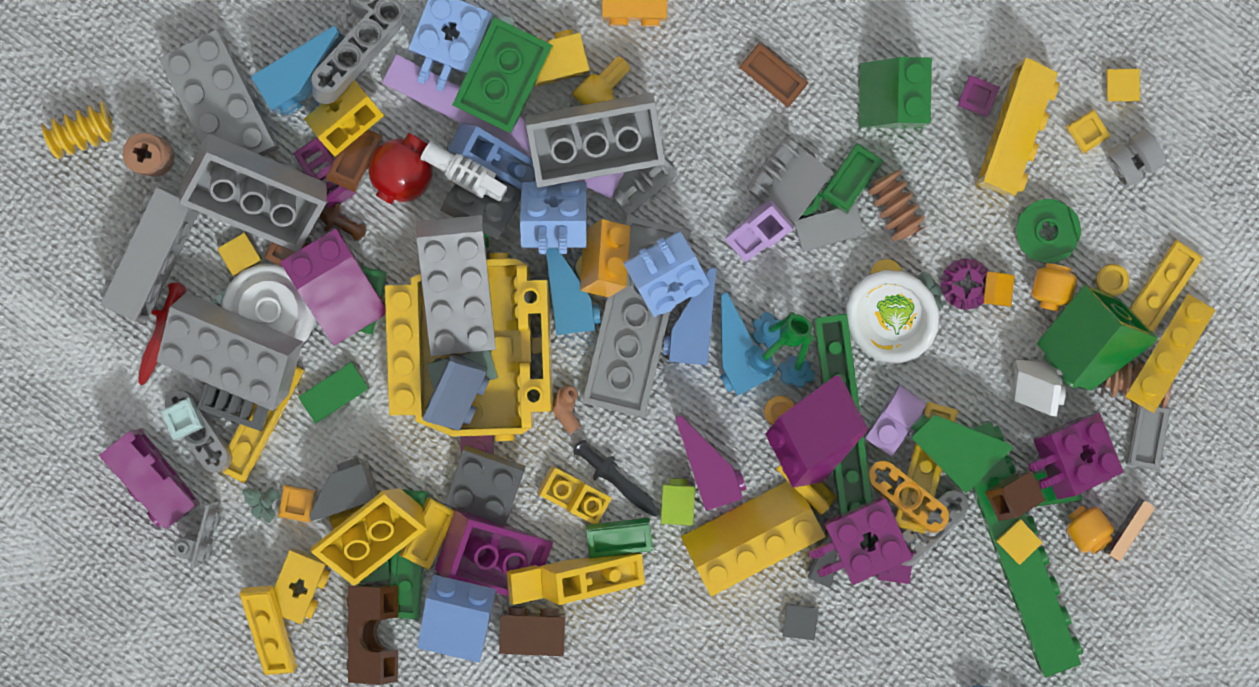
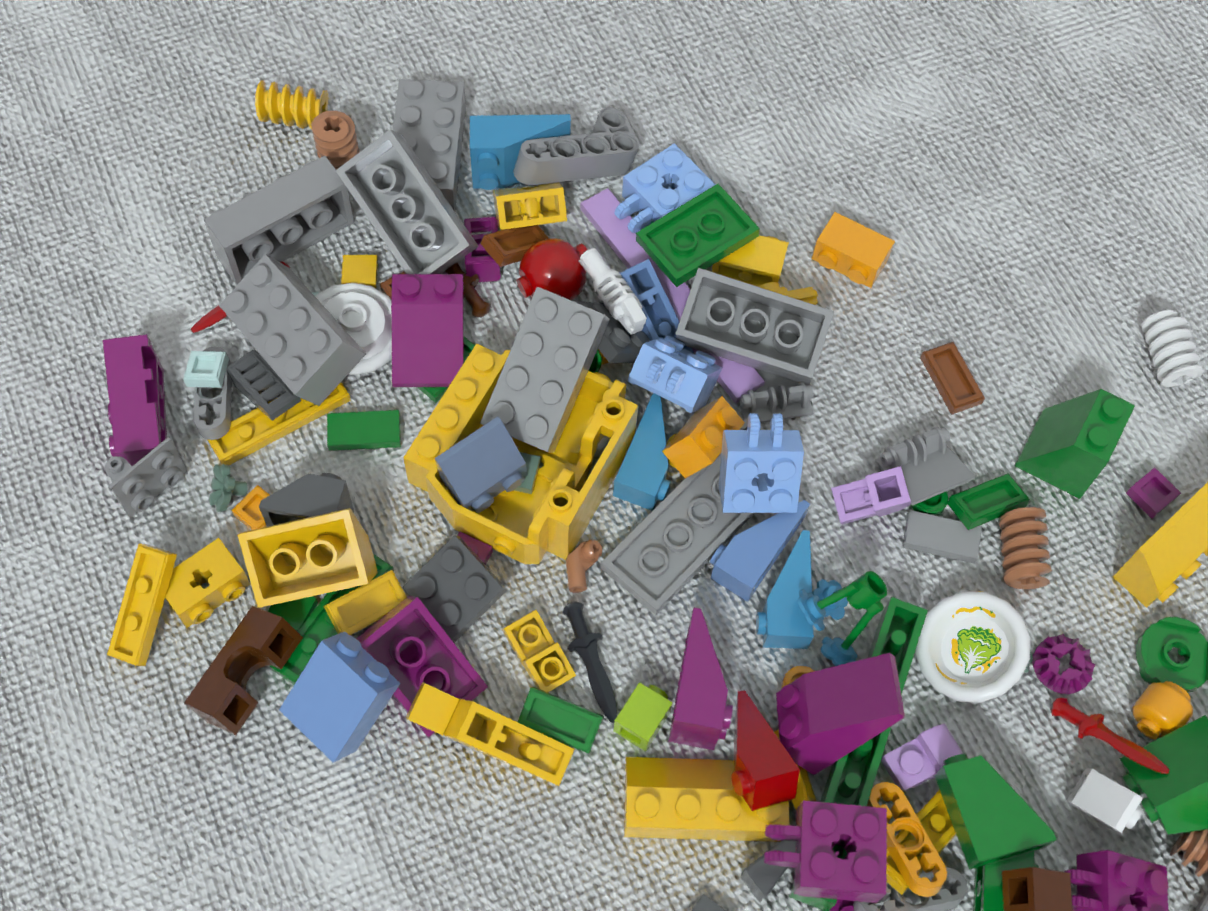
camera: 25 degrees right, 25 degrees down
(532, 632) = (409, 765): reddish brown brick -> none
(782, 503) = (762, 766): none -> red slope
(999, 289) = (1099, 683): light orange tile -> none
(1009, 330) = (1094, 726): none -> red sword

